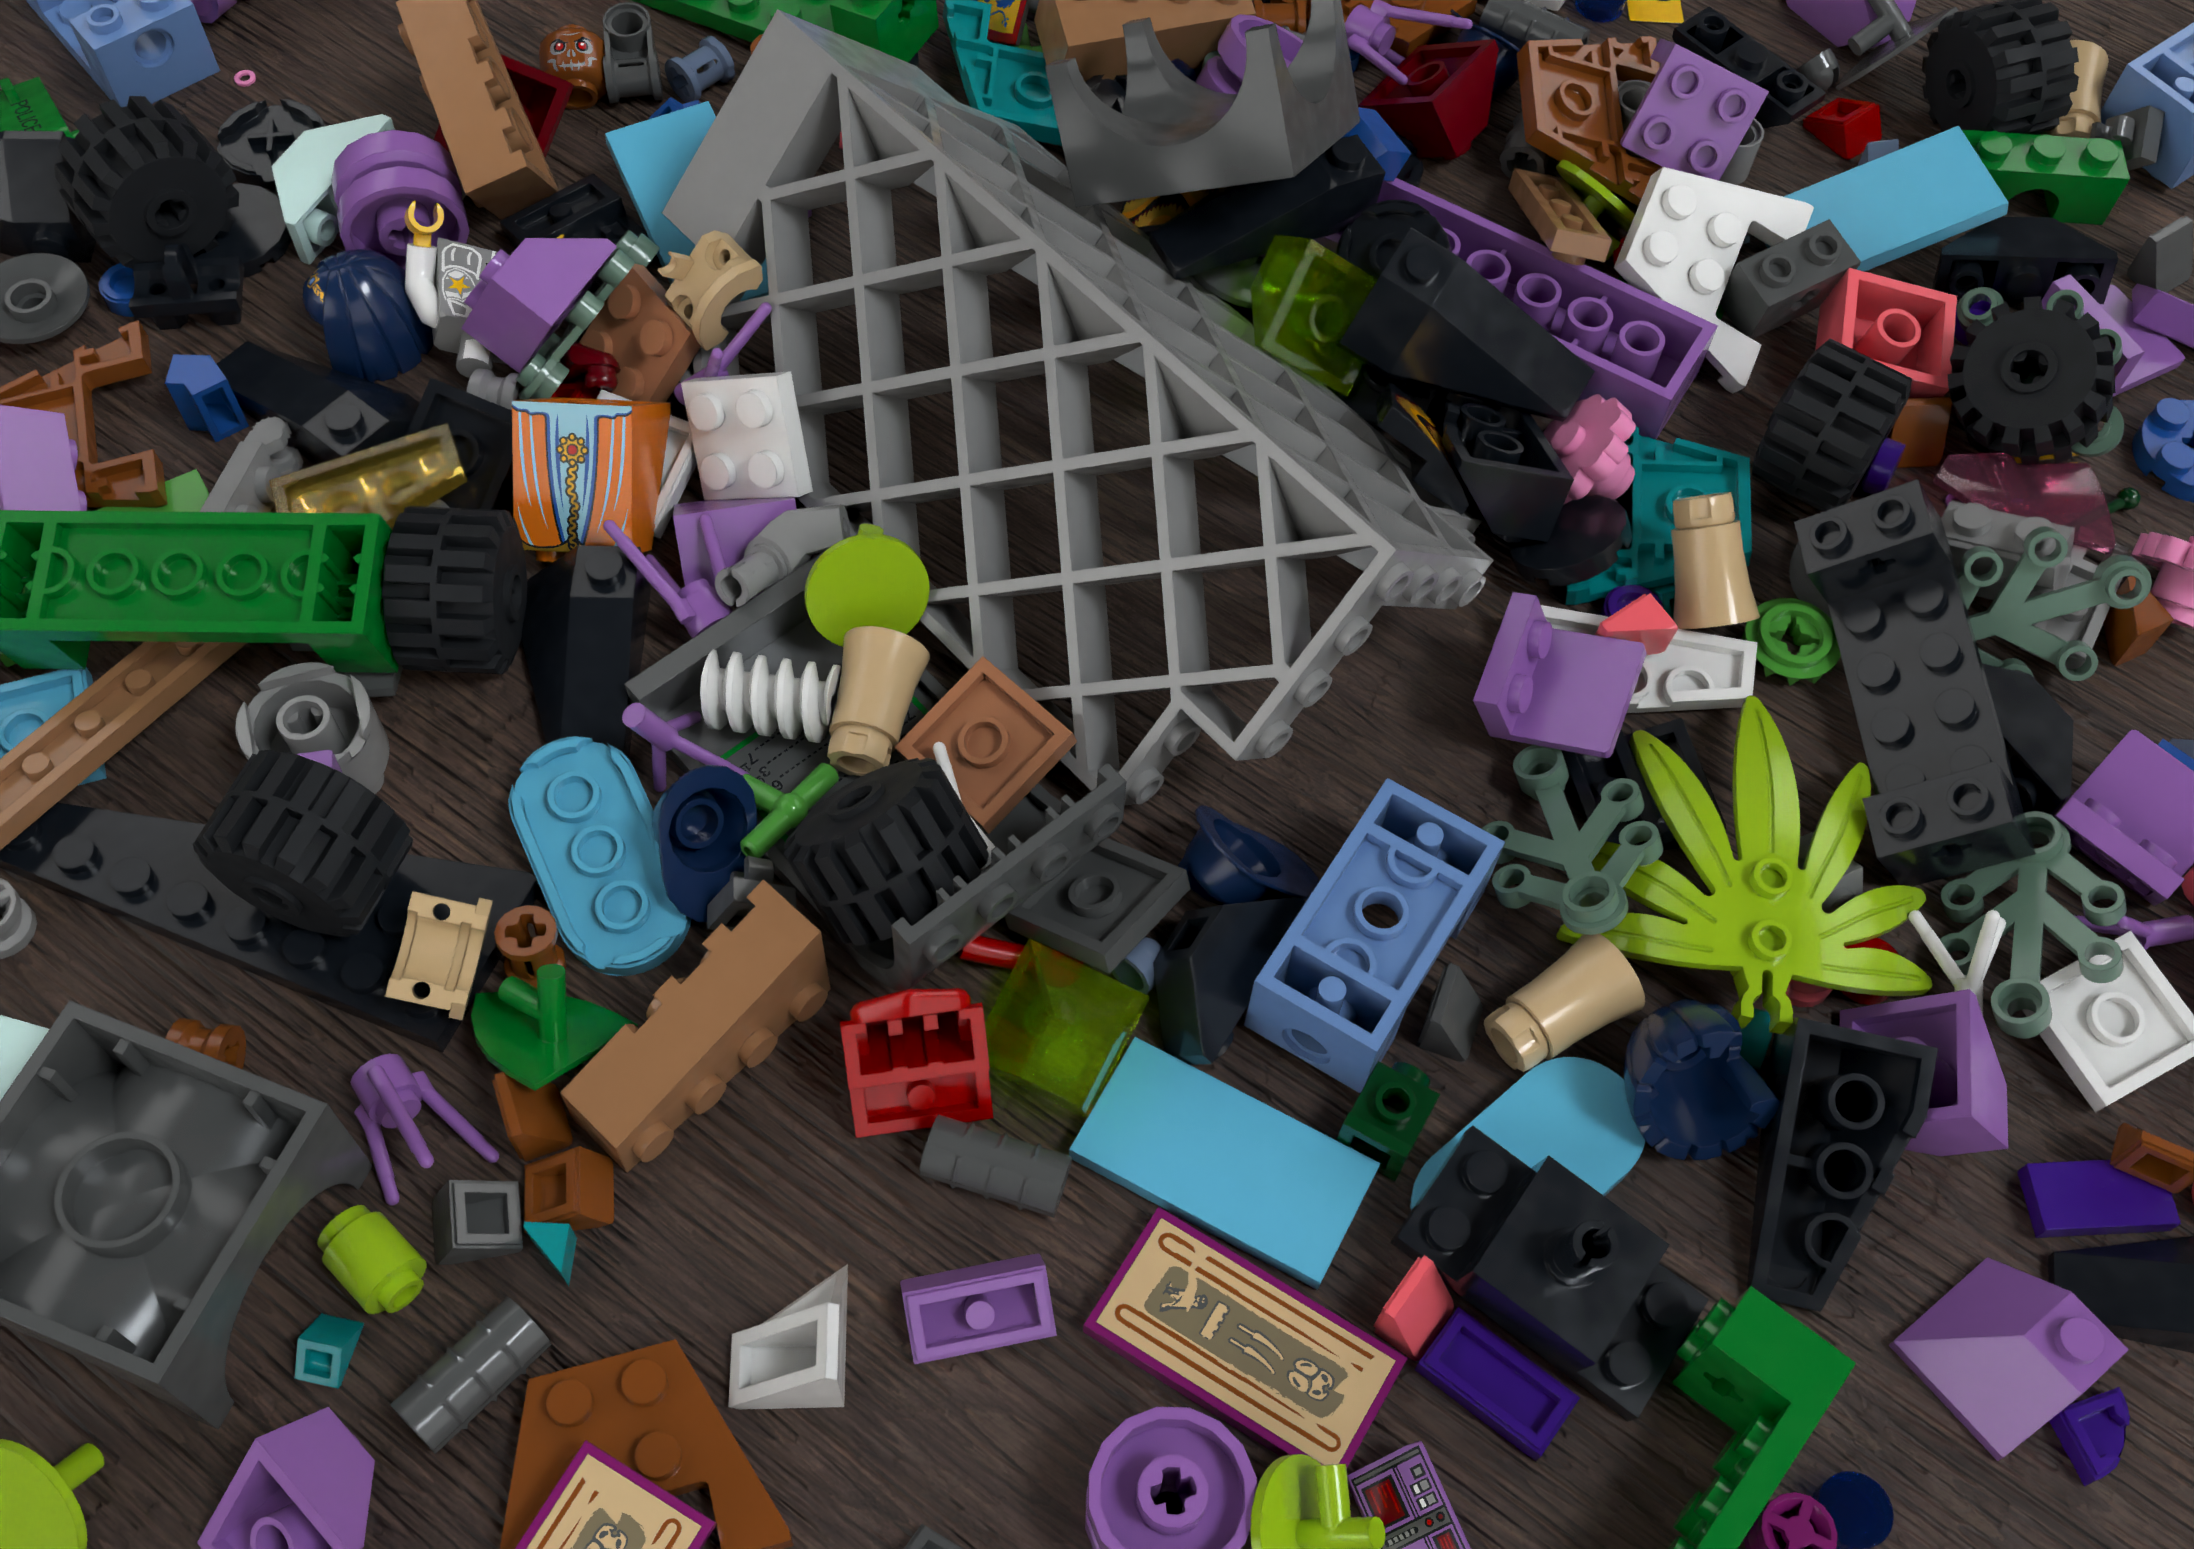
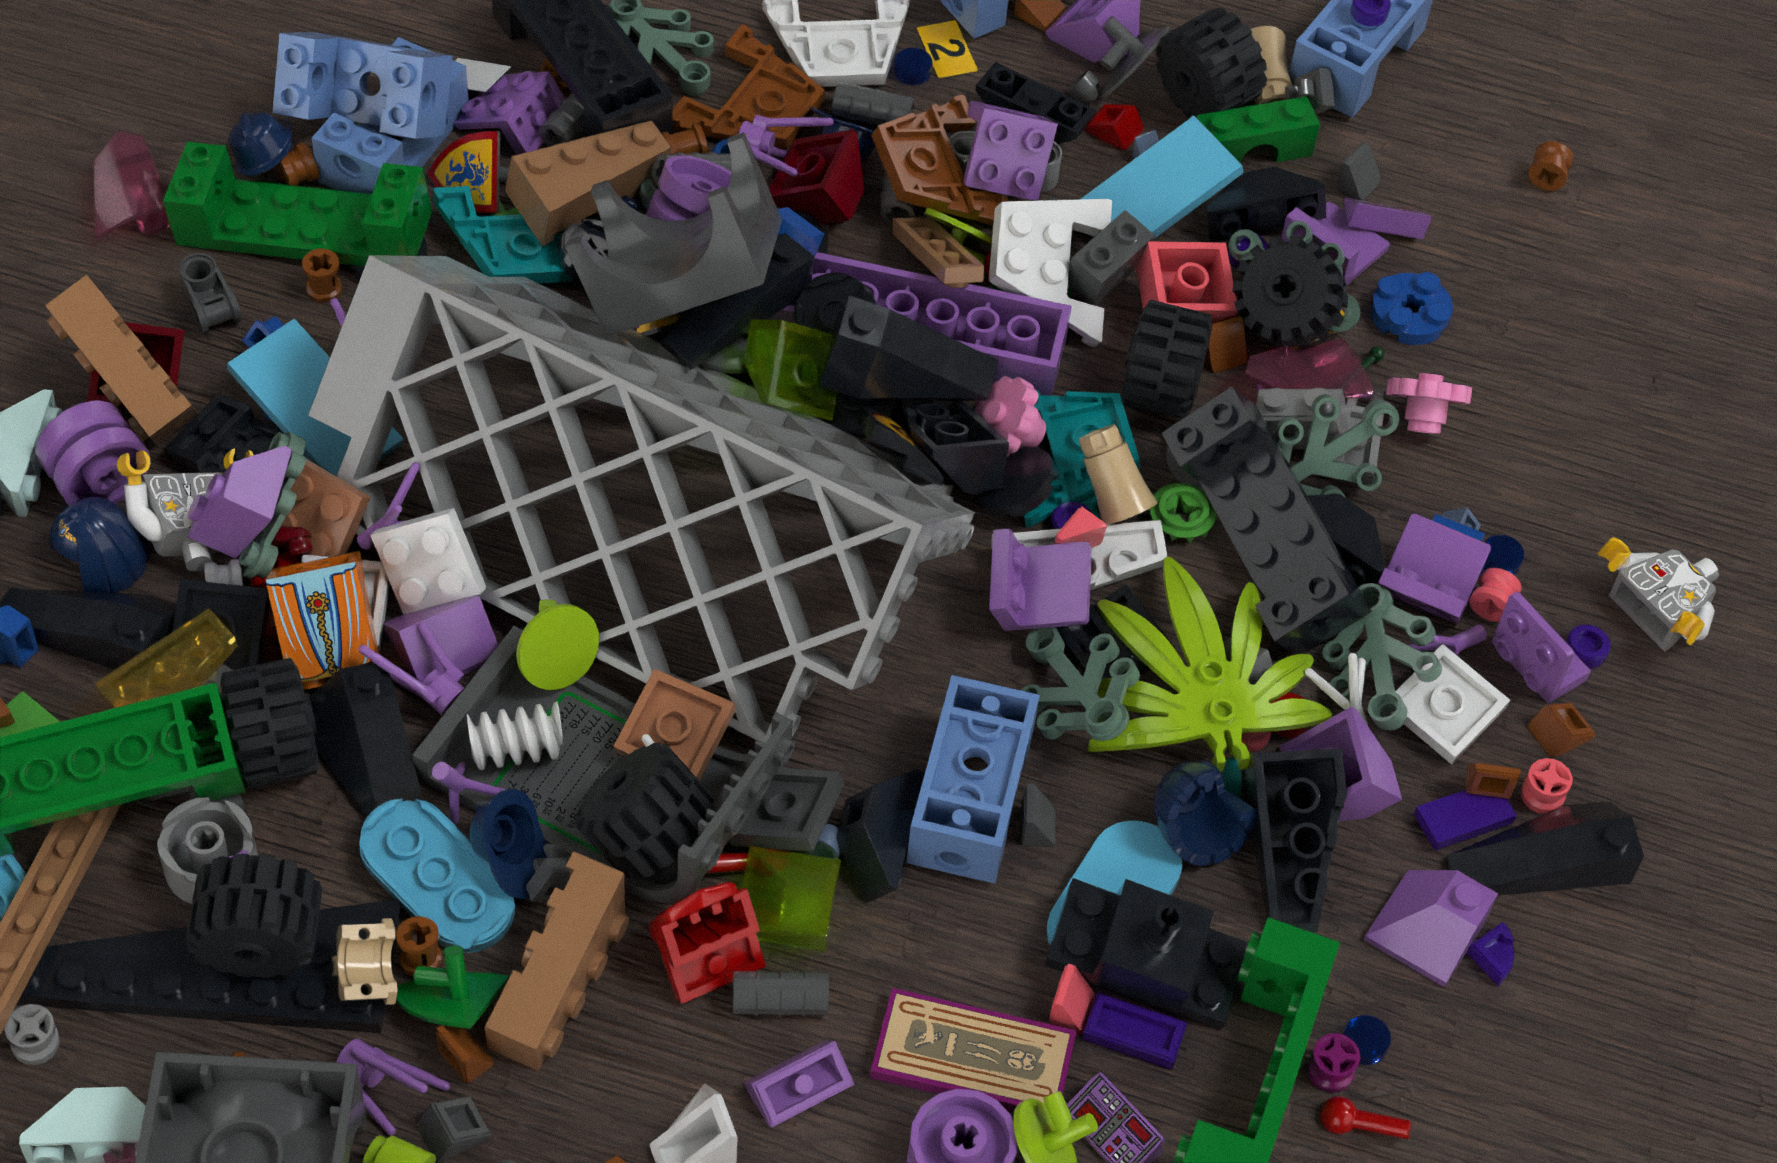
camera: 20 degrees left, 5 degrees down
(255, 461) = (76, 679): light grey hinge -> none
(556, 1243) = (512, 1125): teal piece -> none
(570, 1189) = (506, 1092): dark orange slope -> none
(577, 58) = (168, 307): dark orange head -> none
(695, 83) = (263, 291): sand blue bush -> none
(708, 282) = (368, 460): tan piece -> none
(782, 549) = (484, 634): light grey arm -> none
(784, 809) = (555, 808): bright green piece -> none
(873, 697) = (586, 717): tan plant -> none
(1225, 1162) = (922, 949): medium azure tile -> none
(1241, 865) = (870, 760): dark blue piece -> none
(1384, 1134) = (1017, 892): dark green brick -> none
(1565, 1003) = (1107, 789): tan plant -> none
(1882, 467) = (1209, 376): dark purple tile -> none
(2134, 629) = (1400, 444): dark orange slope -> none

